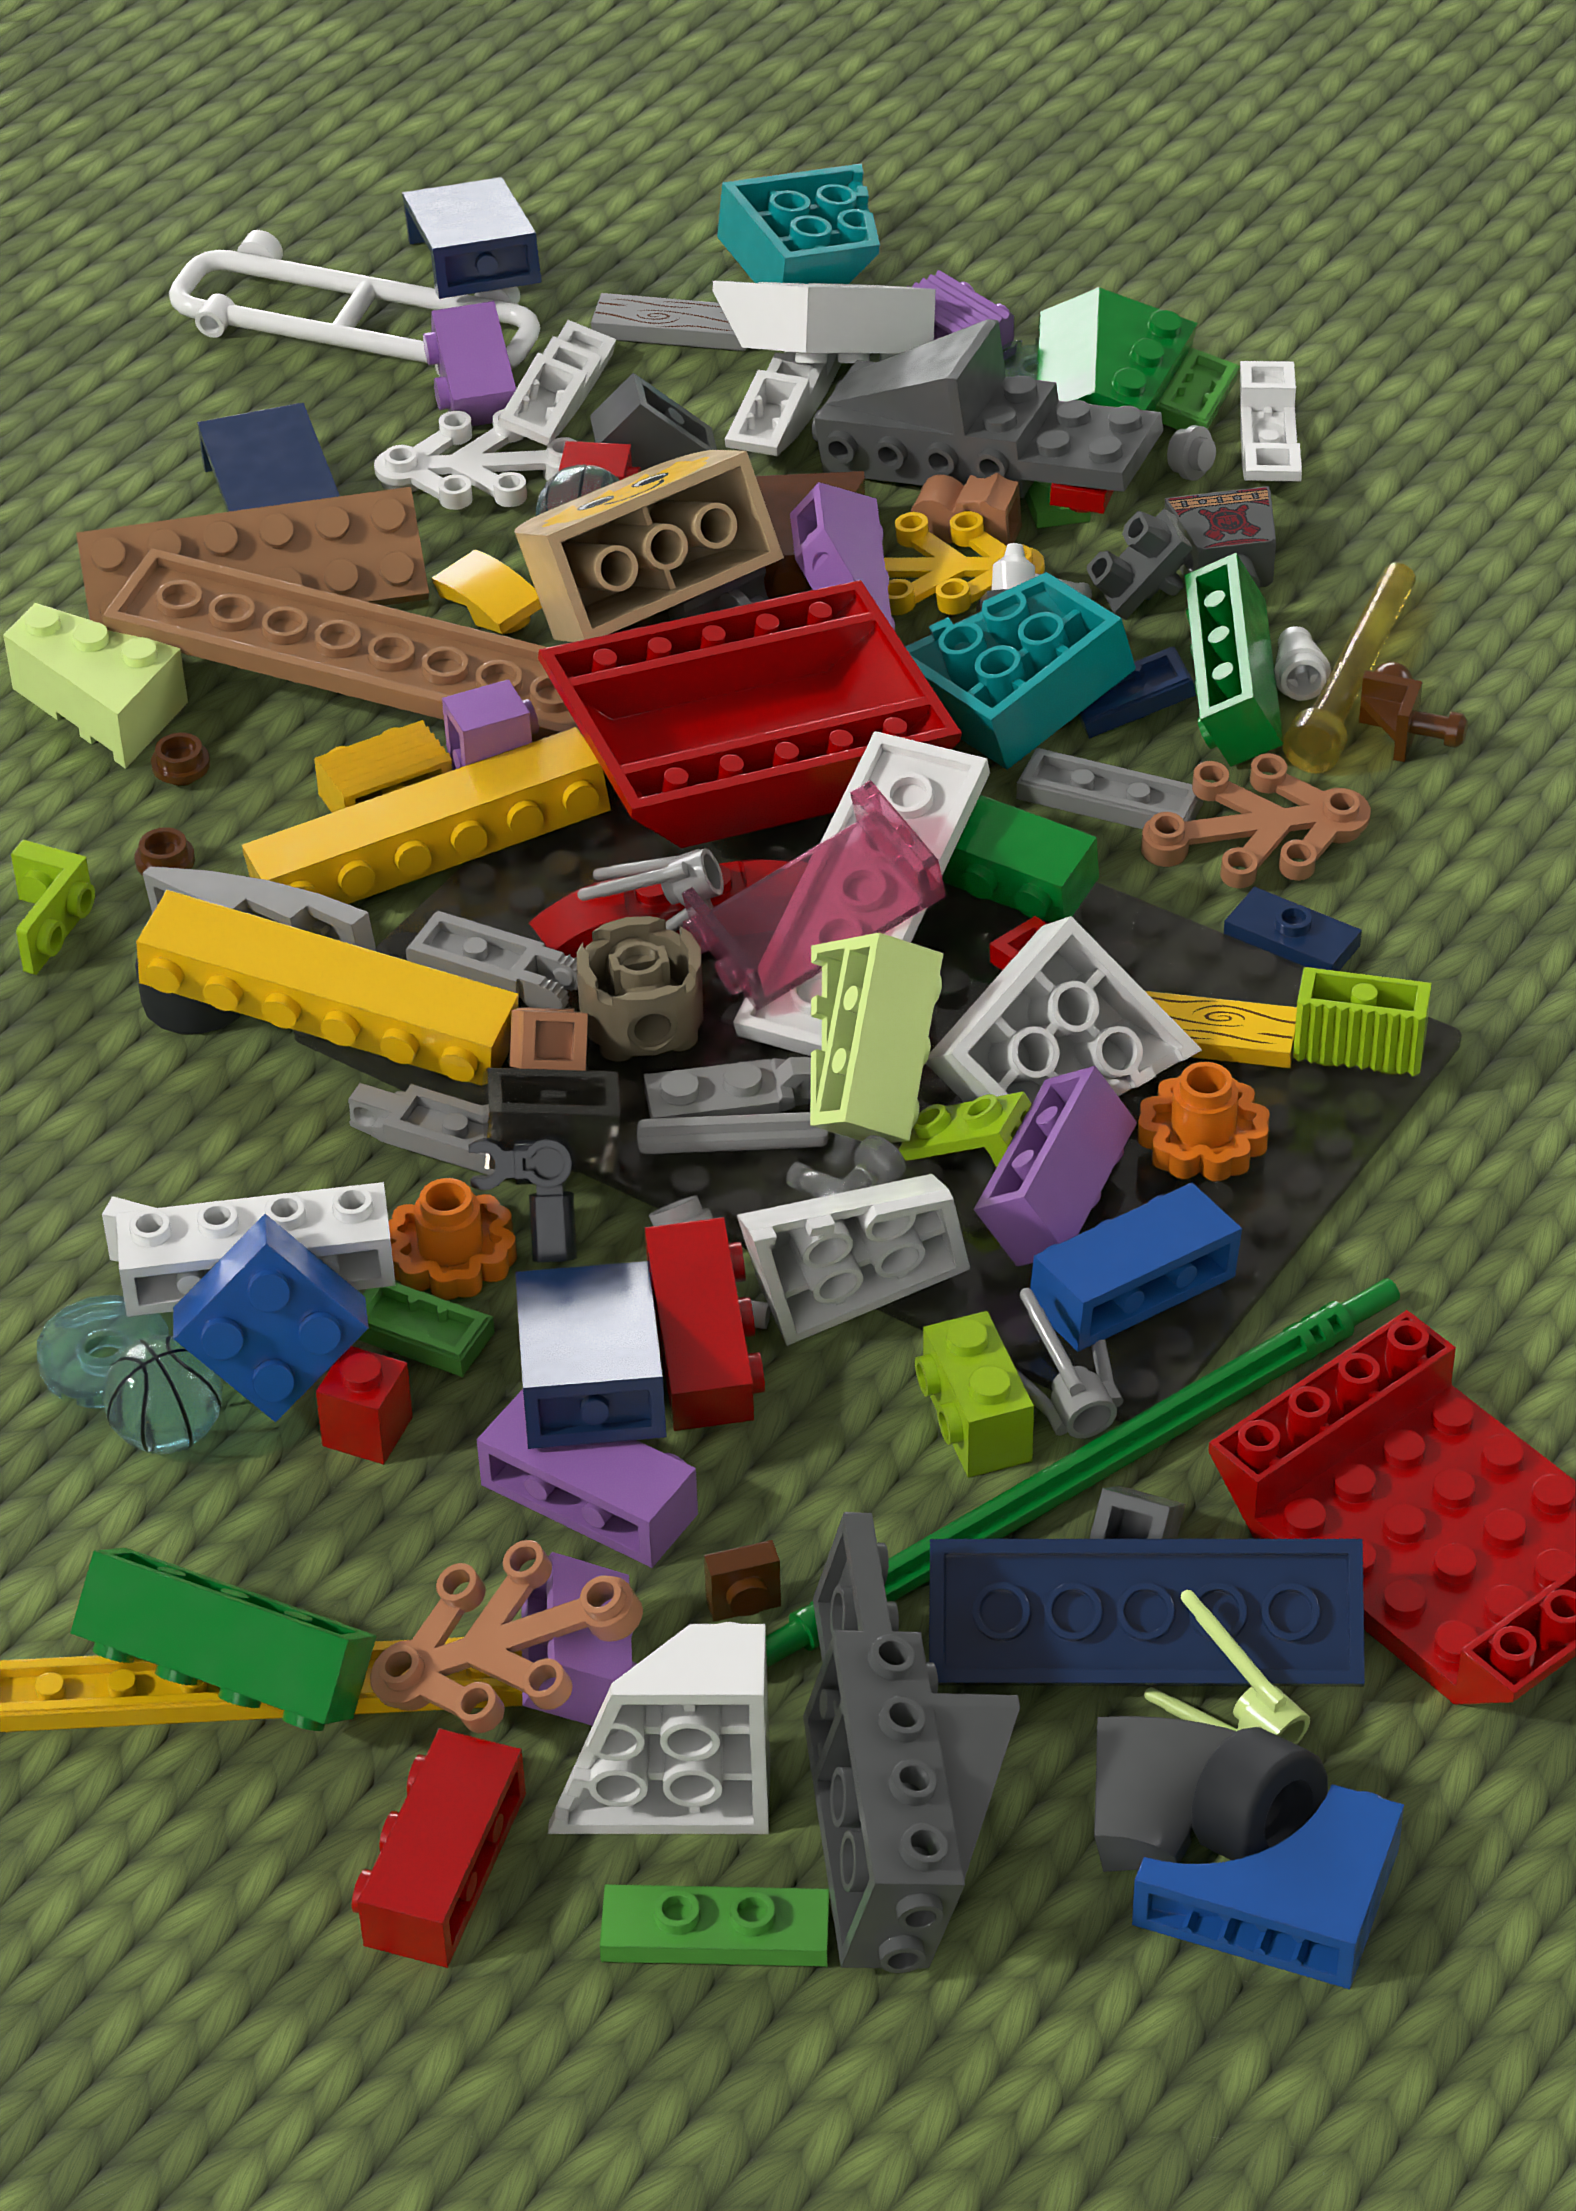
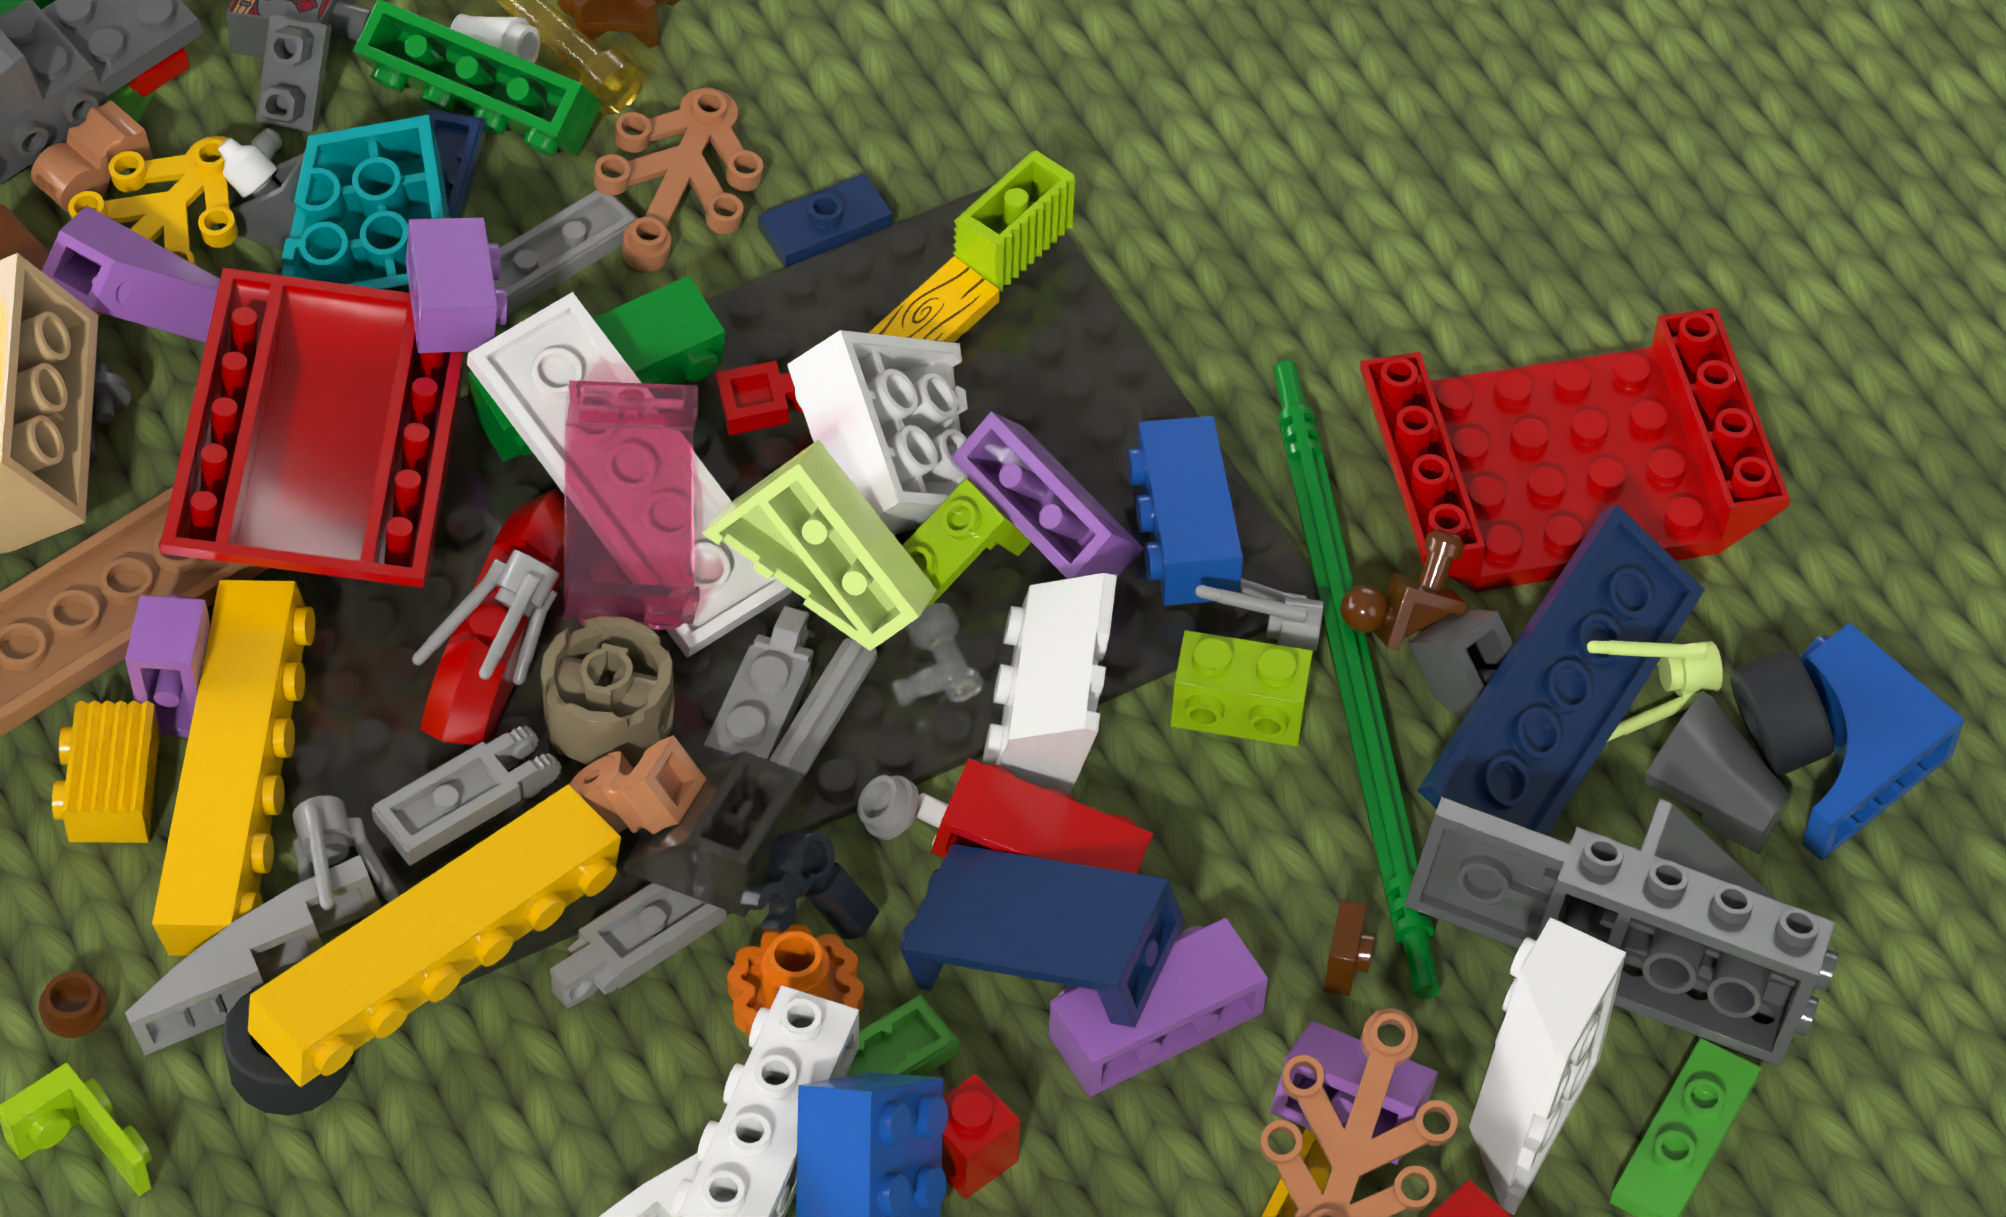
camera: 65 degrees left, 10 degrees up
(398, 902) = (324, 840): none -> light grey plant
(948, 696) = (453, 284): none -> medium lavender brick
(1163, 1463) = (1408, 601): none -> reddish brown piece
(1203, 1124) = (1047, 385): orange plant -> none

